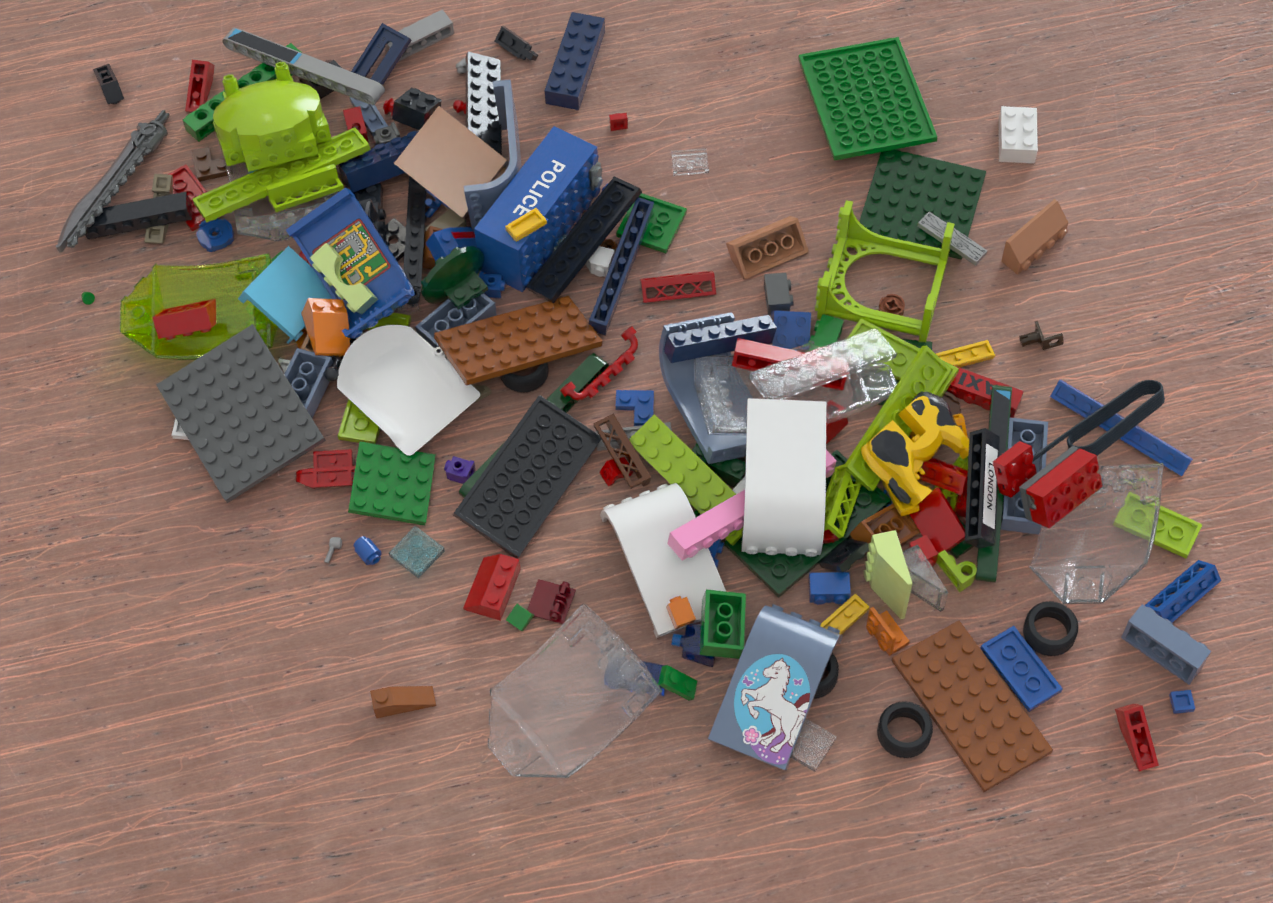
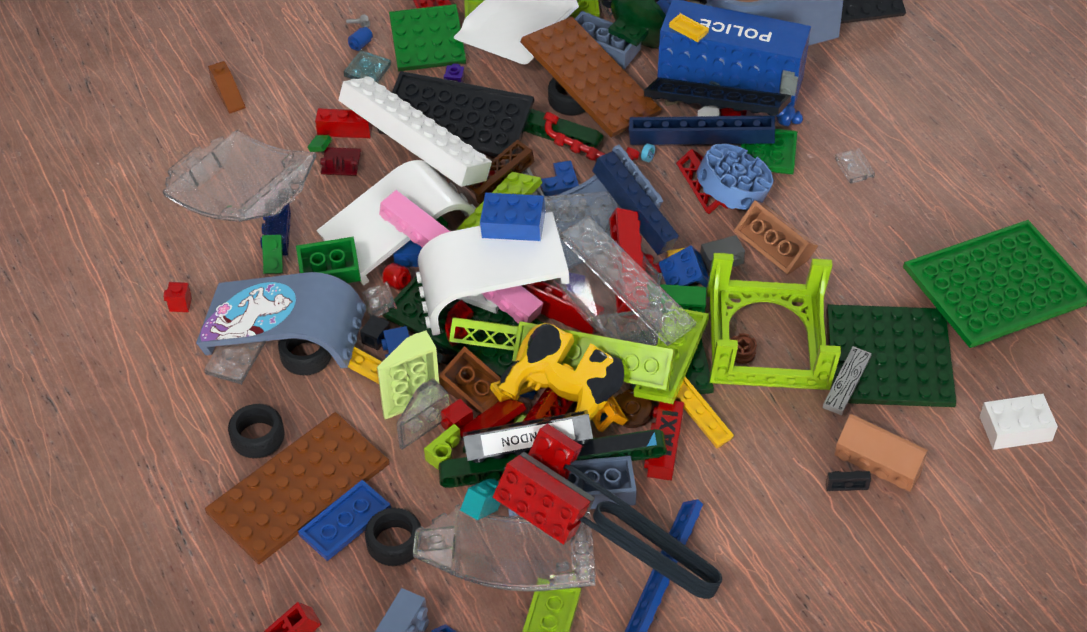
camera: 75 degrees right, 10 degrees down
(483, 390) = (539, 74): dark tan tile -> none
(494, 283) = (650, 55): blue brick -> none
(515, 44) = (928, 19): black hinge -> none
(556, 513) = (415, 131): none -> white brick
(575, 61) = (931, 60): dark blue brick -> none
(618, 121) = (874, 103): red plate -> none
(626, 320) = (648, 152): none -> medium azure tile
(680, 612) = (335, 230): orange brick -> none
(696, 254) = (734, 176): none -> medium blue brick
(711, 783) = (178, 297): none -> red brick
(734, 574) = (396, 276): none -> red head
(754, 429) = (512, 216): none -> blue brick
(763, 593) = (379, 300): none -> clear plate
(802, 603) = (373, 332): none -> black brick
(886, 631) = (358, 398): orange bracket -> none
(1030, 545) = (479, 501): none -> teal brick
(1037, 336) = (753, 480): dark brown bracket -> none
(1051, 275) = (848, 481): none -> black plate

